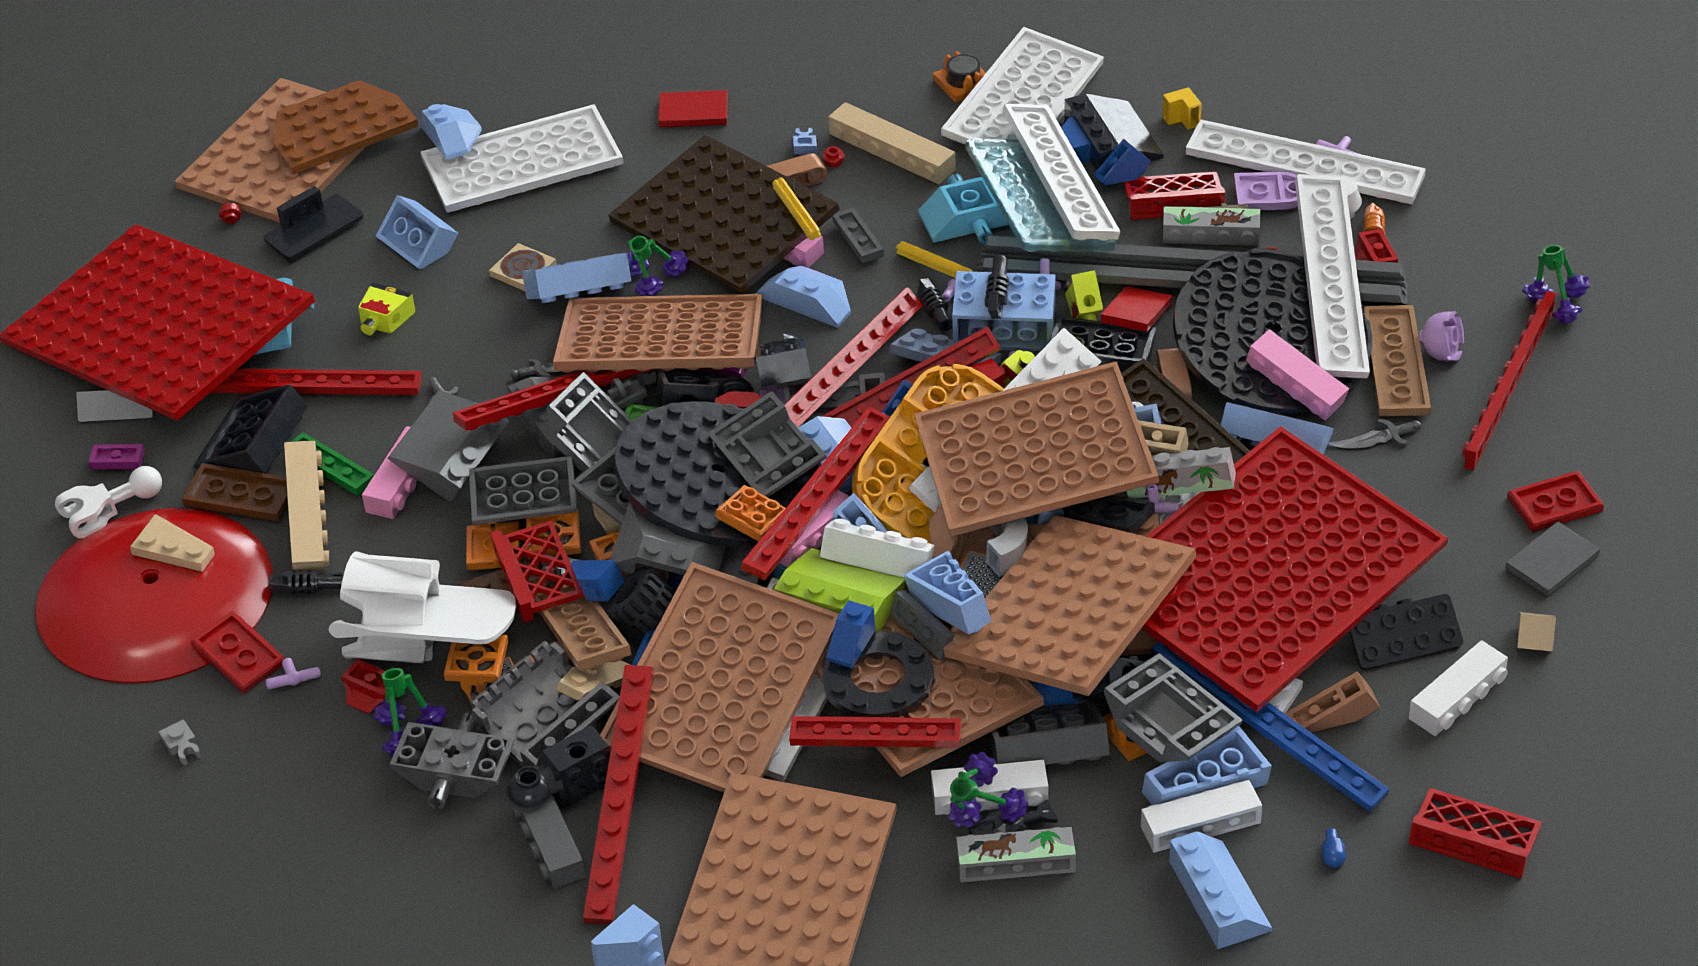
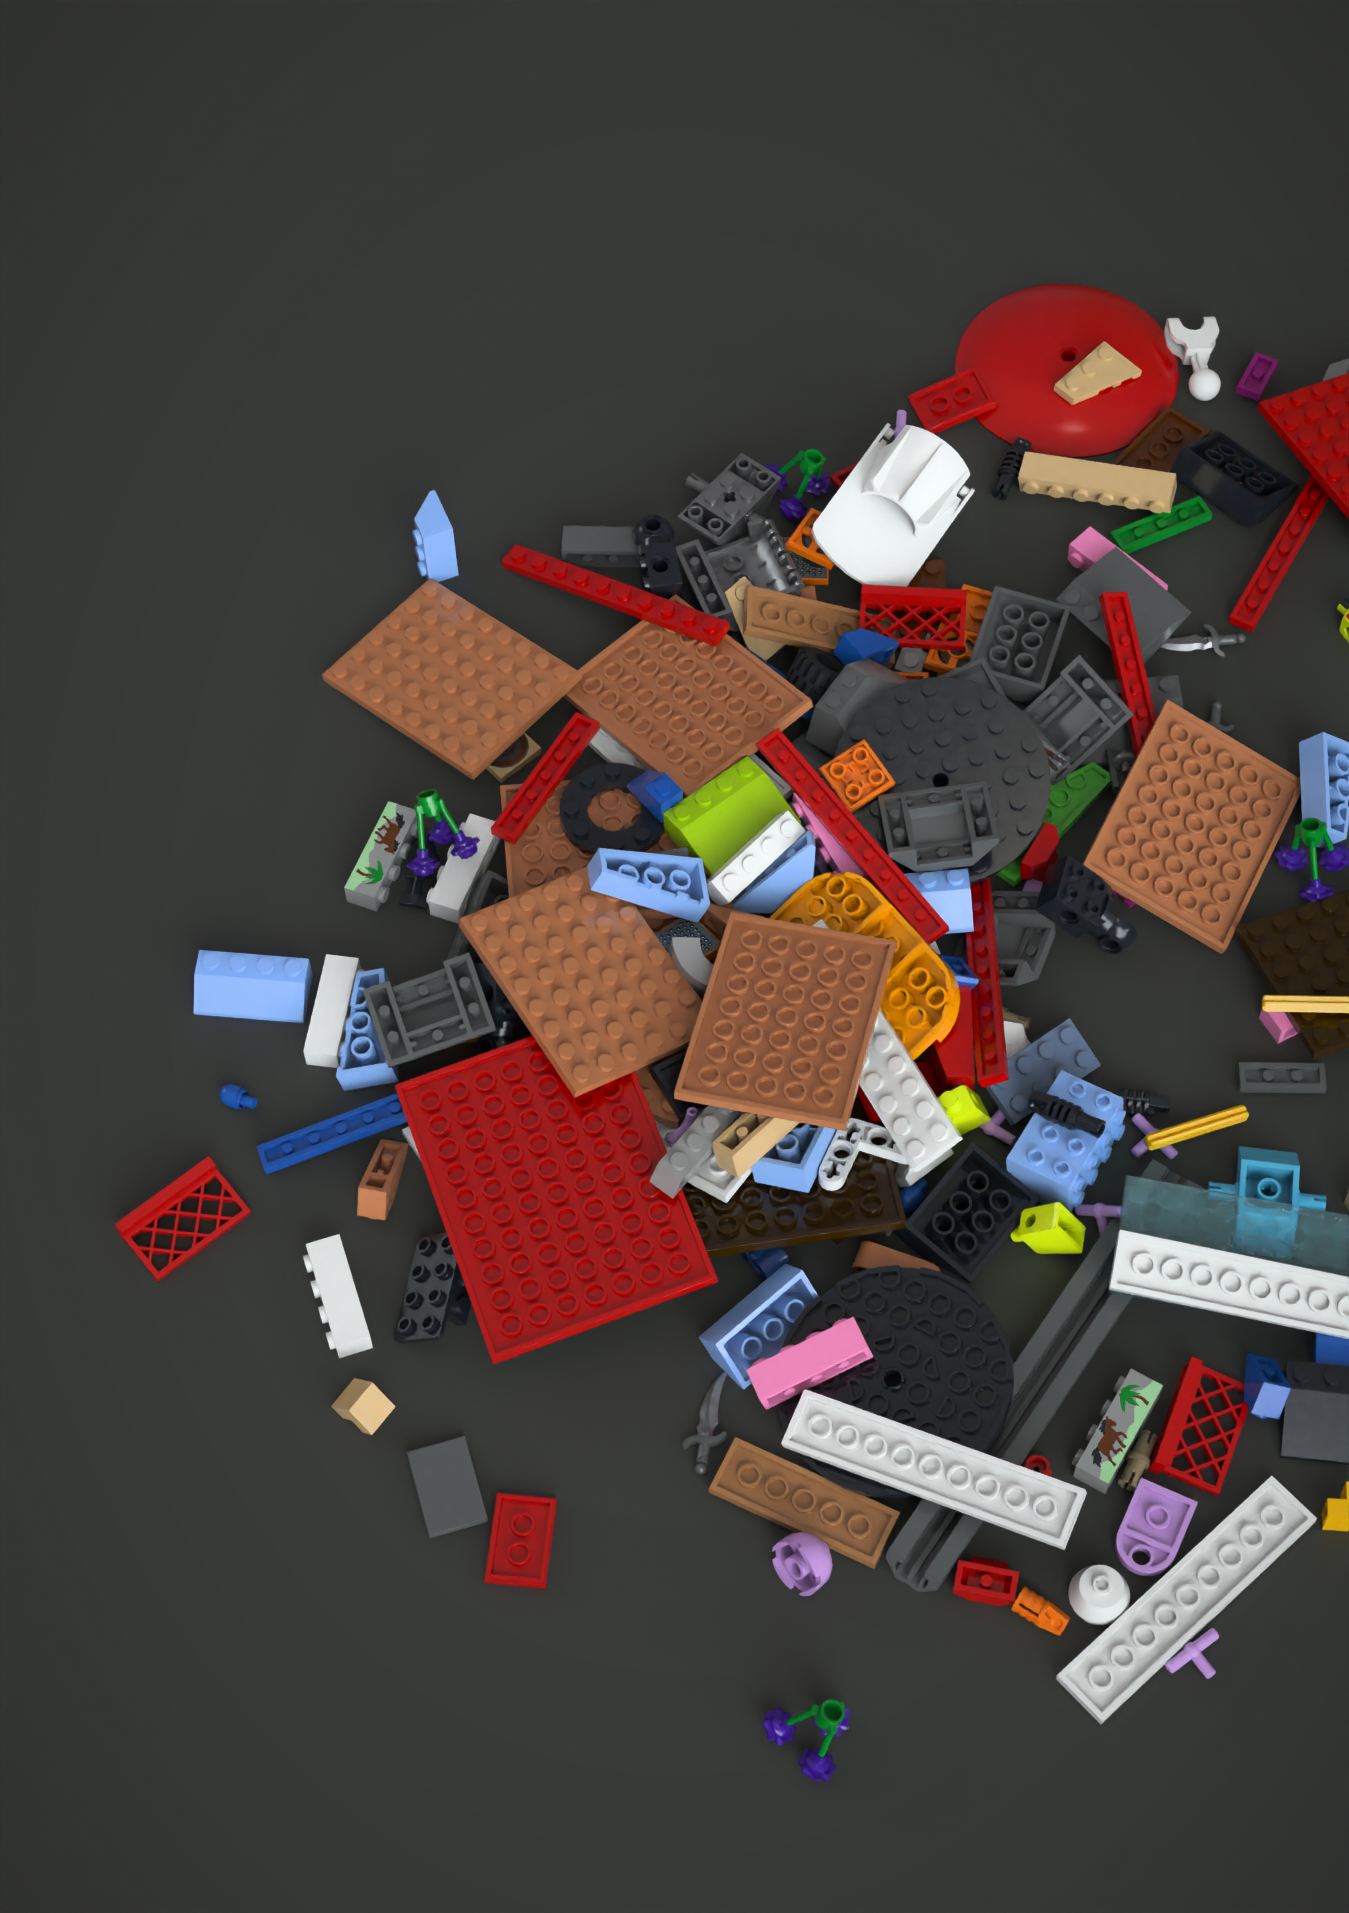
camera: 115 degrees right, 15 degrees up
(180, 740) = (875, 343): light grey plate -> none
(696, 387) = (1080, 812): black brick -> none
(808, 294) = (1206, 993): light blue wedge -> none
(852, 356) = (1066, 974): plate -> none
(1136, 309) = (1014, 1281): red tile -> none
(1506, 385) = (719, 1608): red plate -> none

